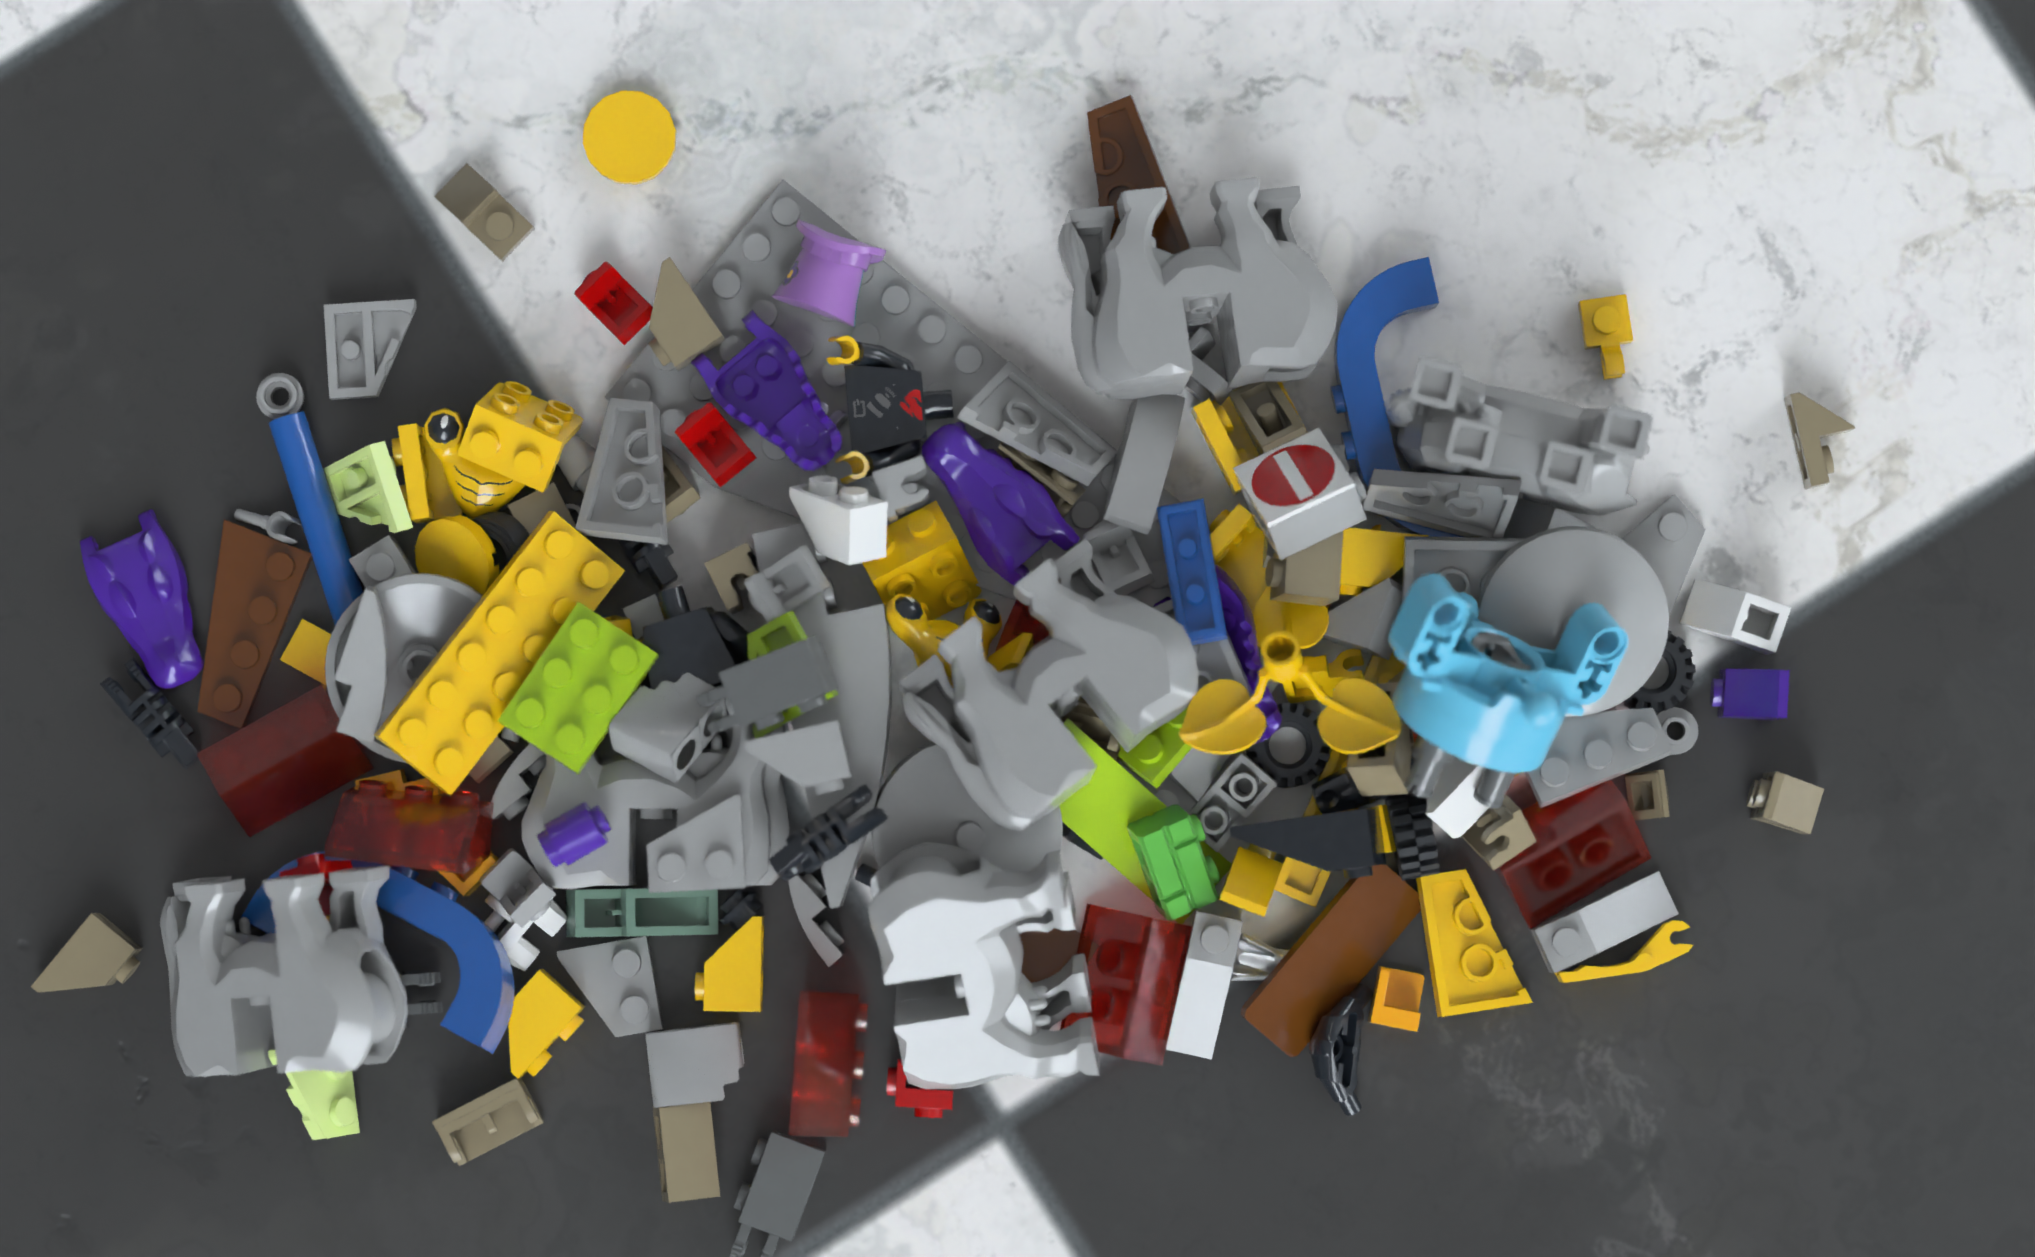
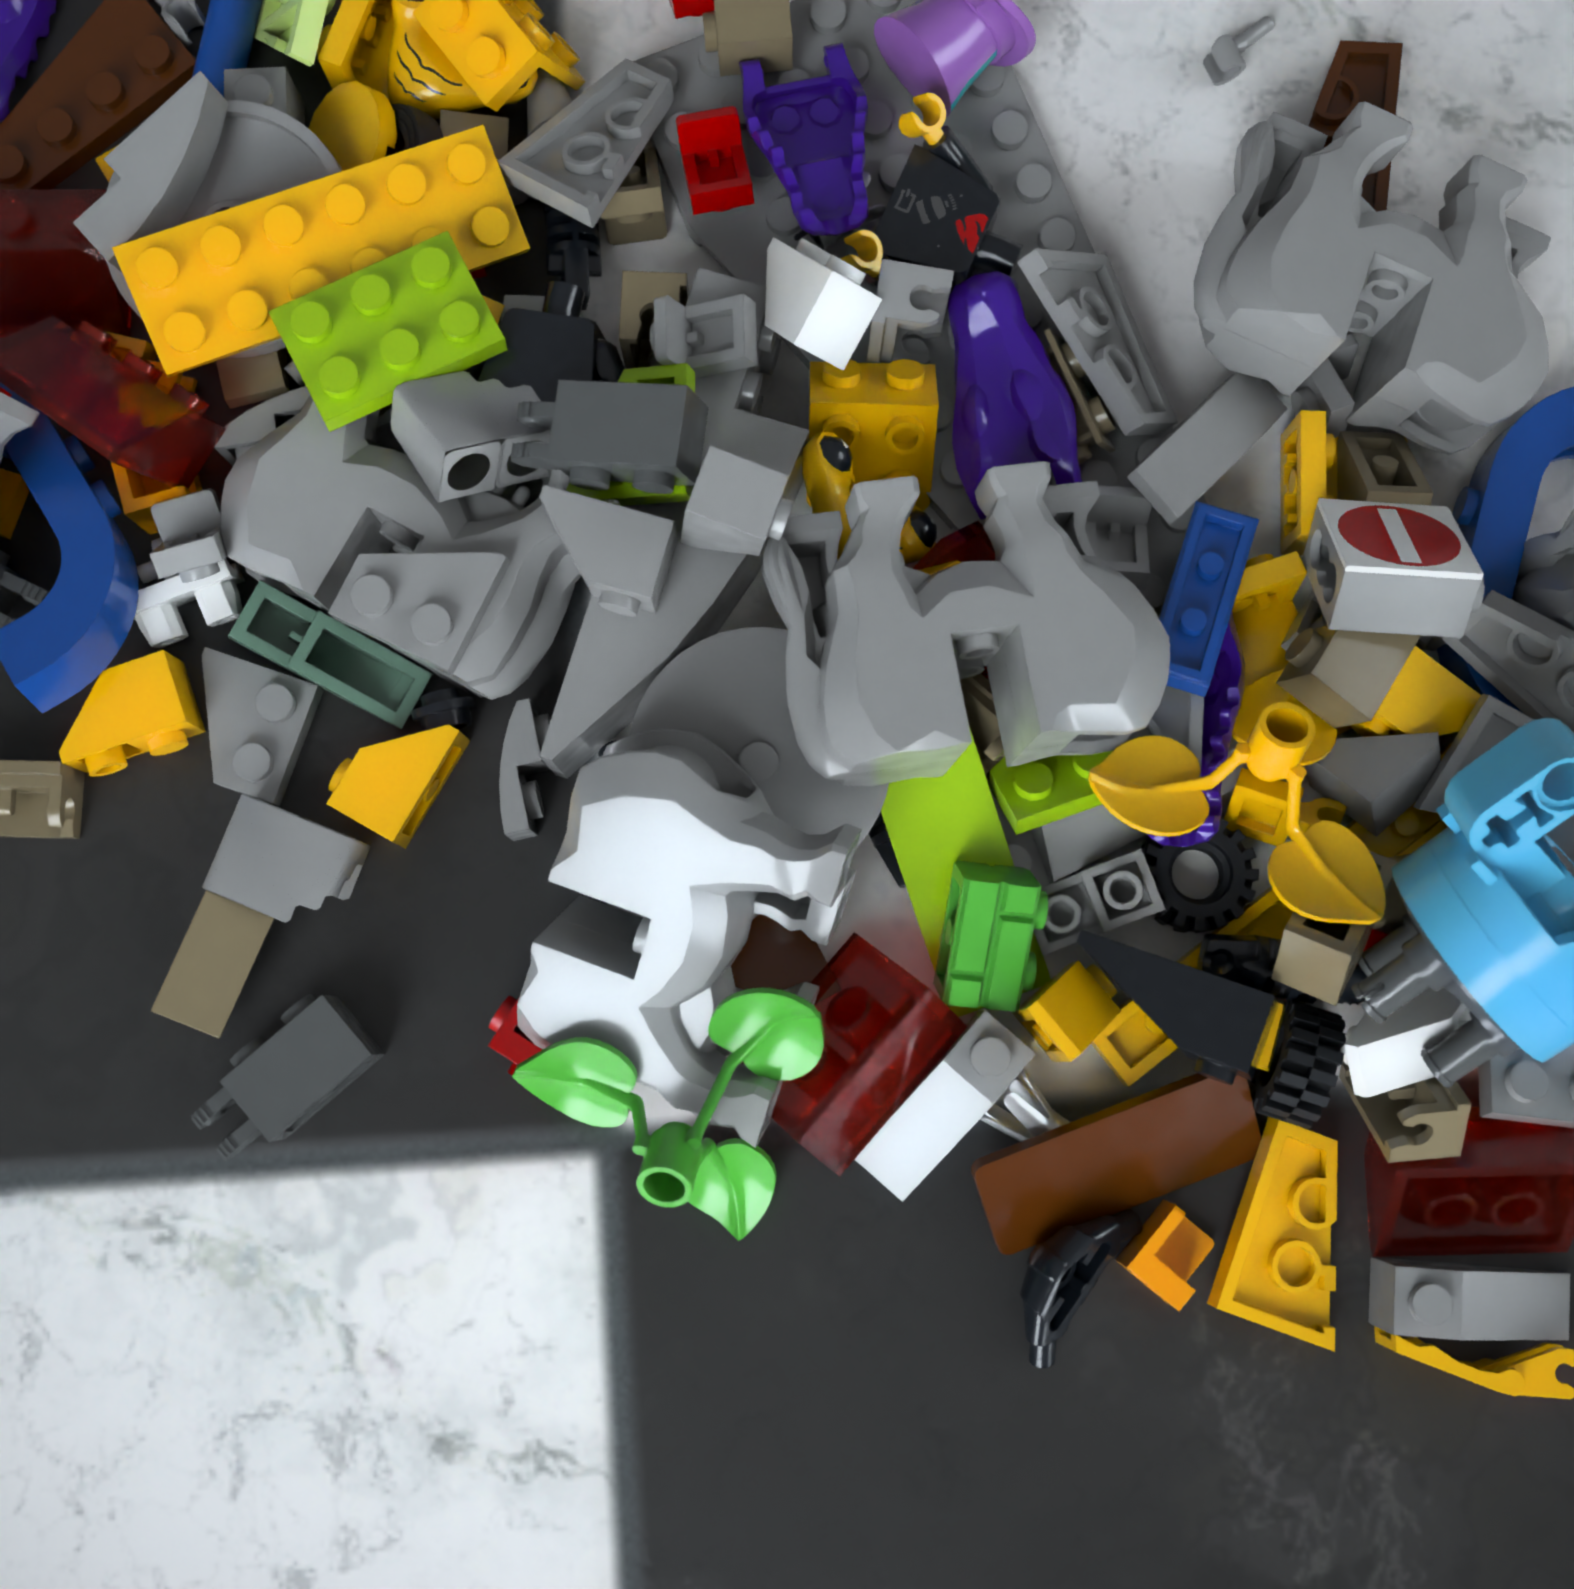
camera: 25 degrees right, 5 degrees down
(574, 834) = (278, 493): dark purple brick -> none
(827, 835) = (584, 661): black hinge -> none
(827, 1063) = (432, 949): clear red slope -> none
(872, 692) = (735, 505): none -> light grey slope
(1013, 162) = (1225, 58): none -> light grey hand
(1089, 1109) = (730, 1181): none -> bright green plant

